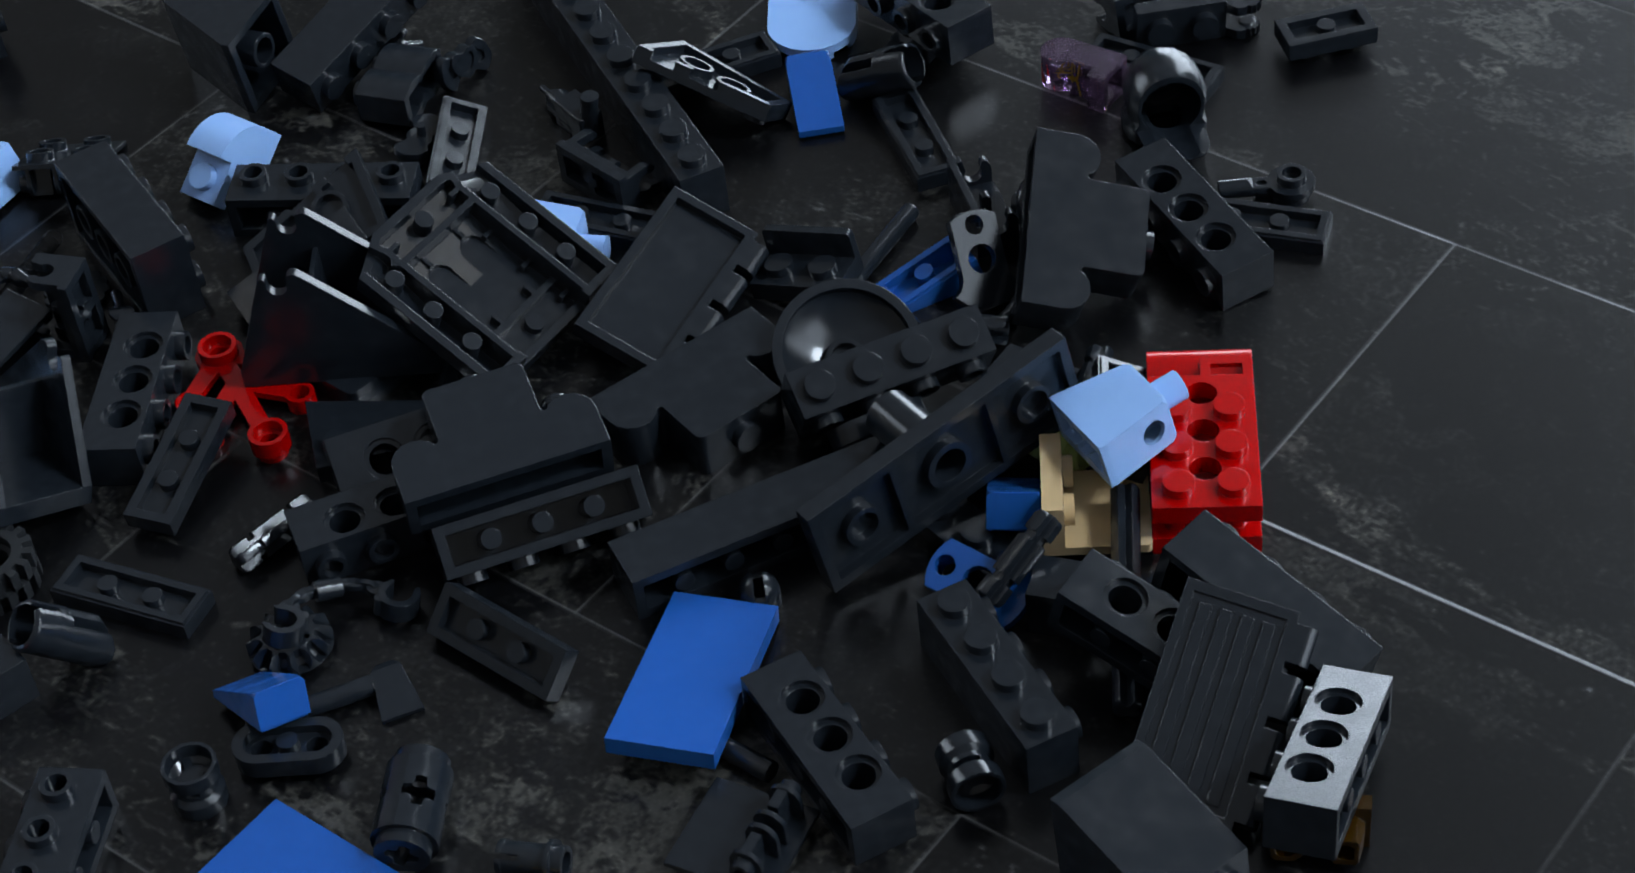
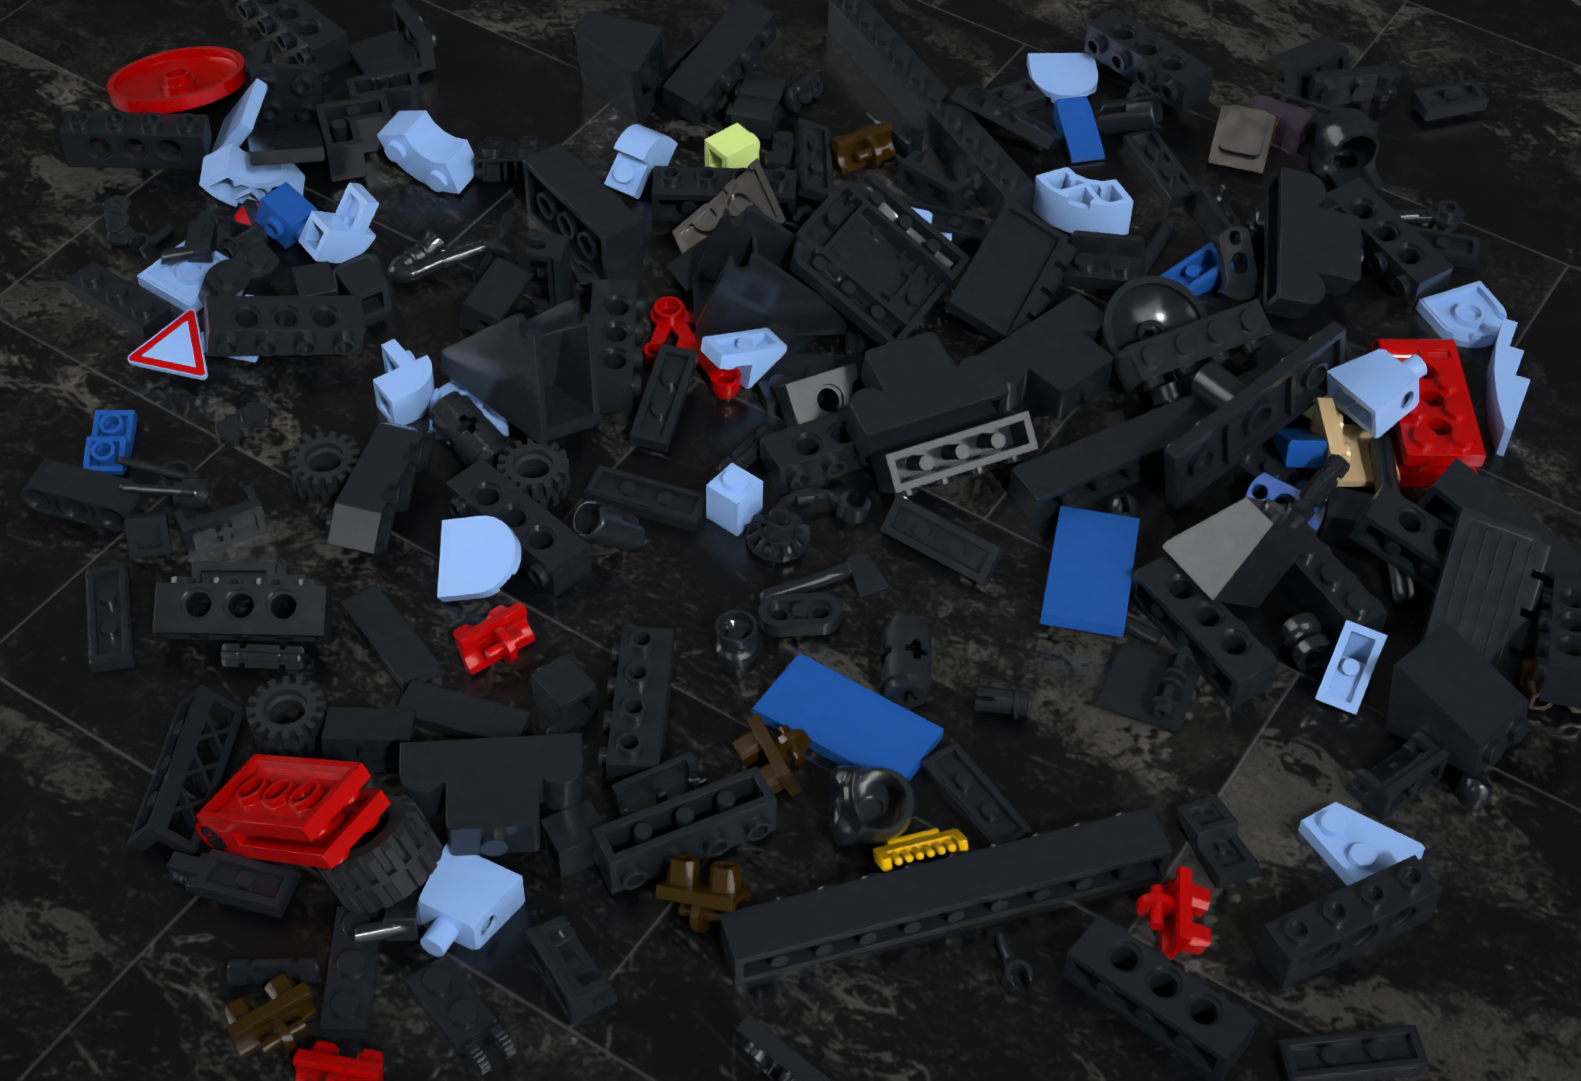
camera: 10 degrees left, 5 degrees up
(236, 593) = (734, 499): none -> light blue brick
(266, 699) = (777, 577): blue slope -> none
(299, 398) = (747, 350): none -> light blue slope
(348, 131) = (731, 148): none -> yellowish green brick
(523, 130) = (863, 147): none -> dark brown hips
(788, 188) = (1081, 203): none -> light blue brick
(887, 645) = (1242, 549): none -> slope
(1018, 805) = (1351, 667): none -> light blue slope
(1026, 94) = (1242, 139): none -> black piece
(1293, 317) = (1464, 314): none -> light blue tile
(1324, 410) = (1503, 387): none -> light blue slope

